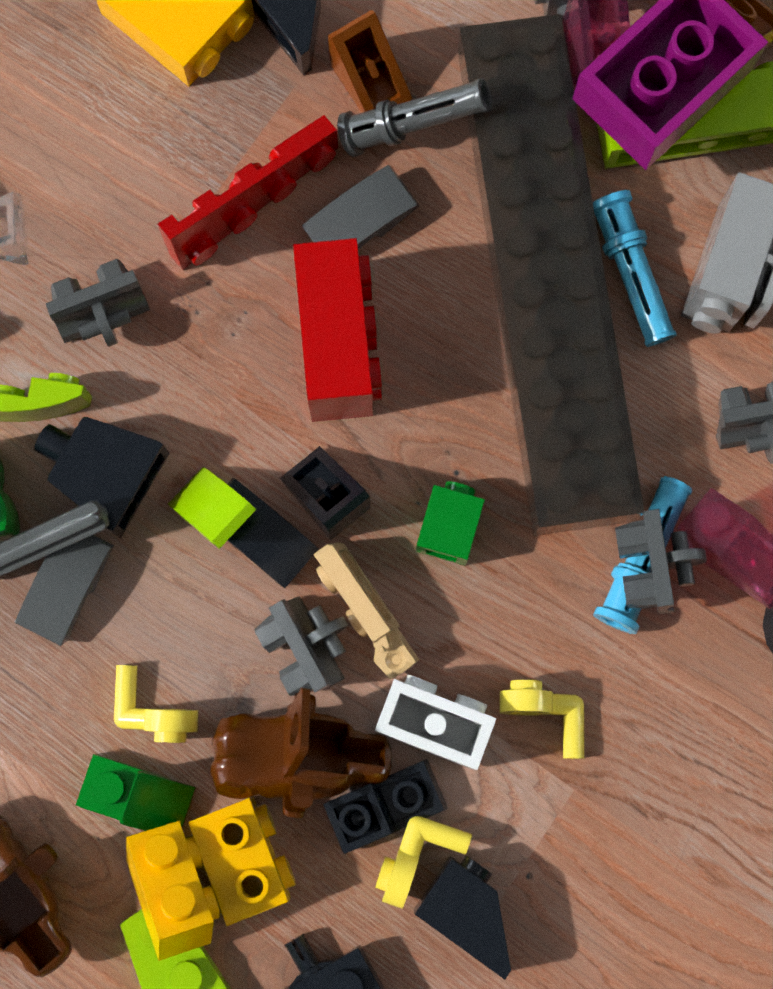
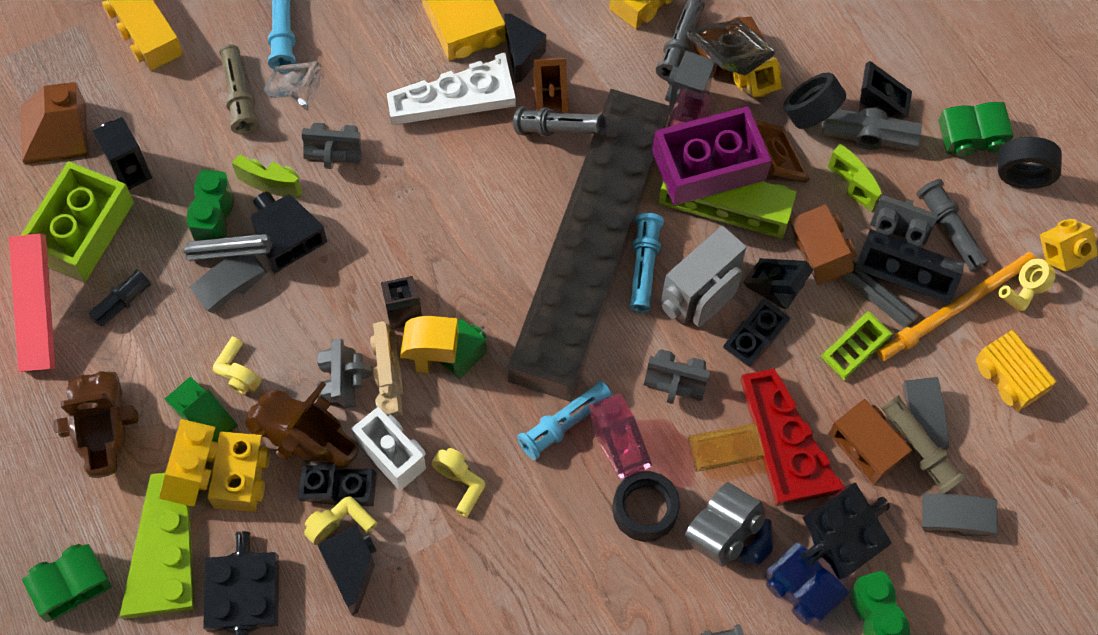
camera: 25 degrees right, 15 degrees down
(211, 507) = (331, 273): lime slope -> none
(242, 127) = (470, 91): none -> white wing
(251, 189) = (450, 122): red wing -> none
(271, 540) = (350, 302): black slope -> none
(337, 329) = (452, 213): red brick -> none
(364, 210) = (503, 163): dark grey slope -> none
(411, 544) = (430, 340): none -> yellow brick
(647, 538) = (567, 404): dark grey hips -> none

